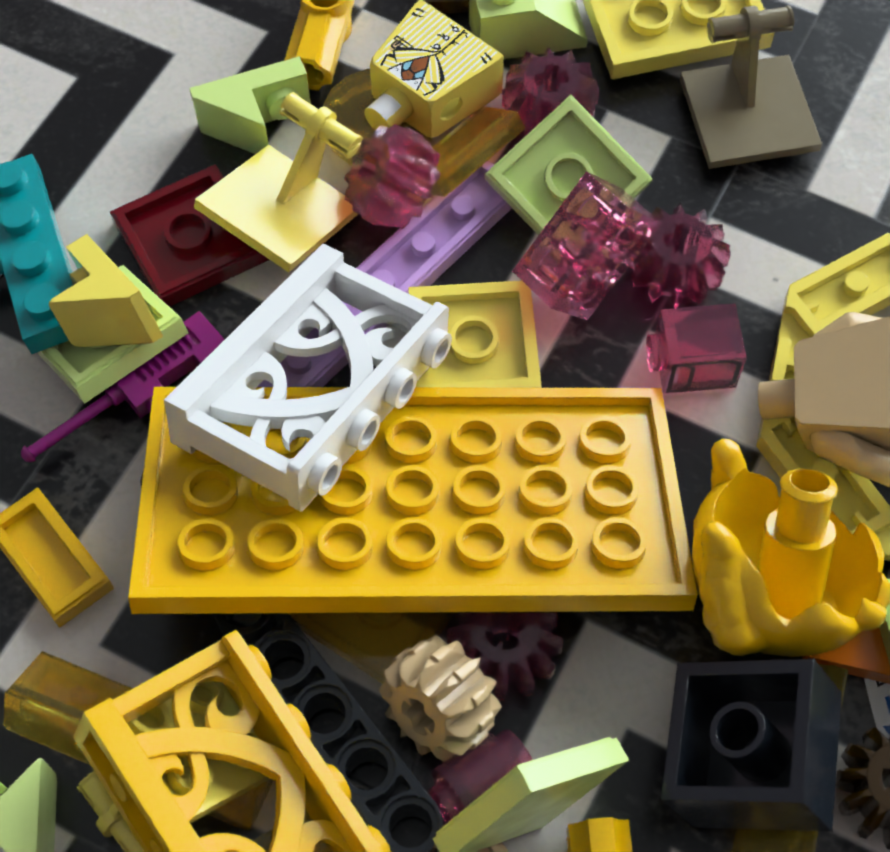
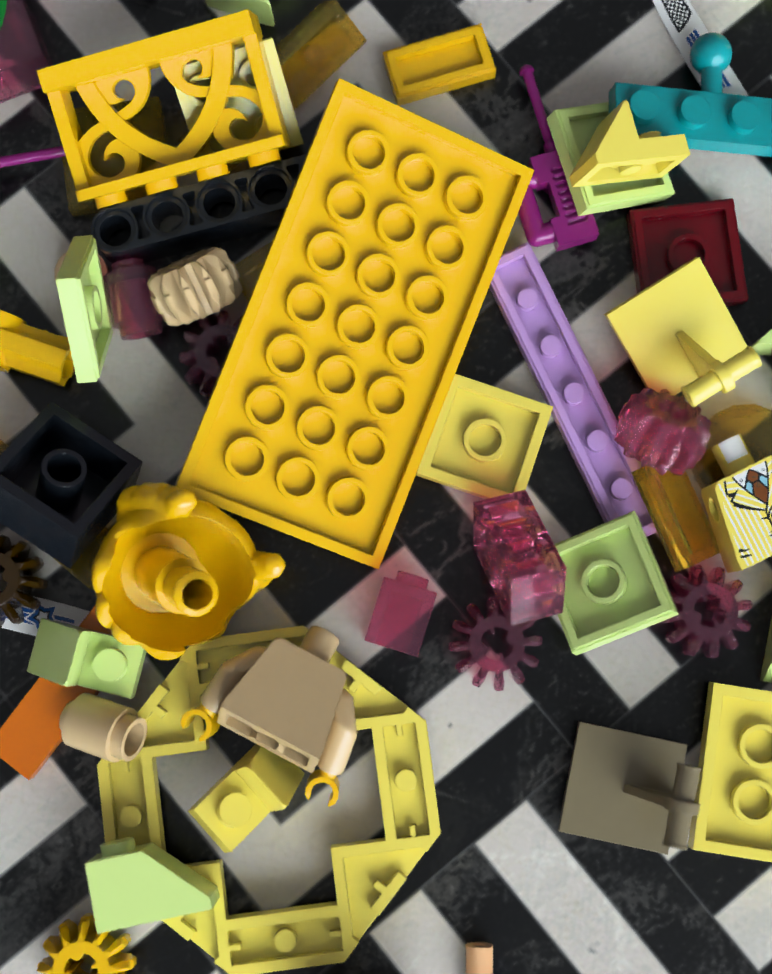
camera: 115 degrees right, 20 degrees up
(334, 422) = (557, 304): white fence -> none

